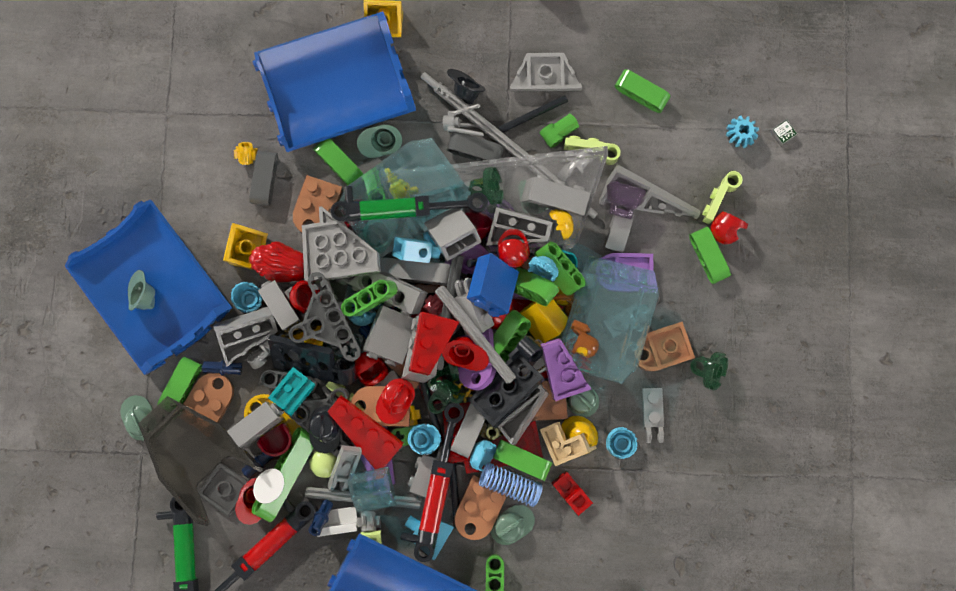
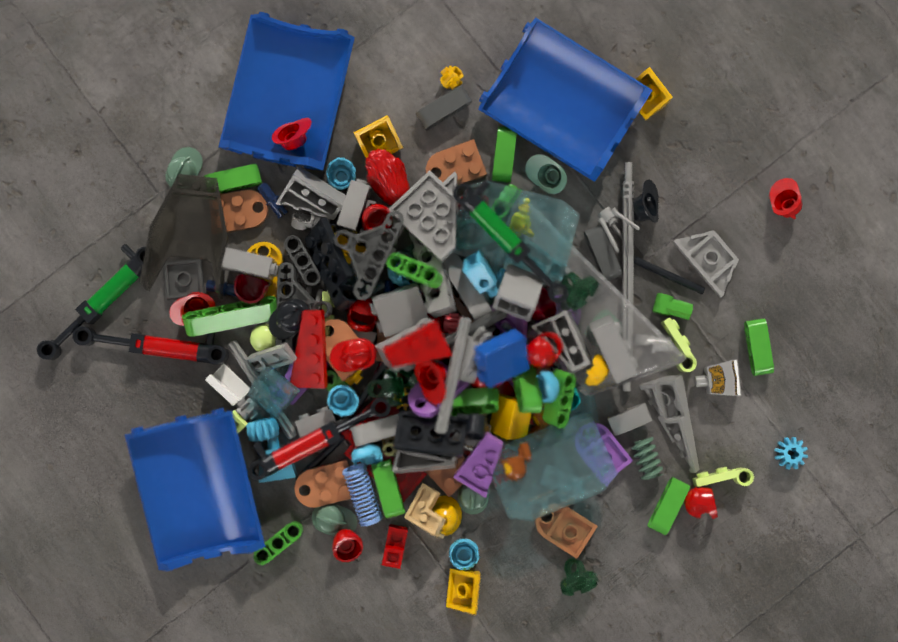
camera: 45 degrees right, 5 degrees up
(140, 293) = (277, 91): sand green piece -> none
(184, 309) = (292, 134): none -> red piece
(268, 486) = (212, 312): white sticker -> none
(292, 391) = (296, 270): teal plate -> none
(320, 518) = (220, 371): dark blue axle -> none
(394, 522) = (262, 429): none -> medium azure gear
(541, 530) = (347, 545): none -> red hat
(624, 196) = (660, 402): clear purple piece -> none
(644, 138) = (720, 379): none -> torso
(650, 466) = (463, 590): none -> yellow slope
(653, 412) = (507, 559): light grey hinge -> none
(660, 241) = (647, 458): none -> sand green piece
(783, 132) = (818, 486): tile -> none

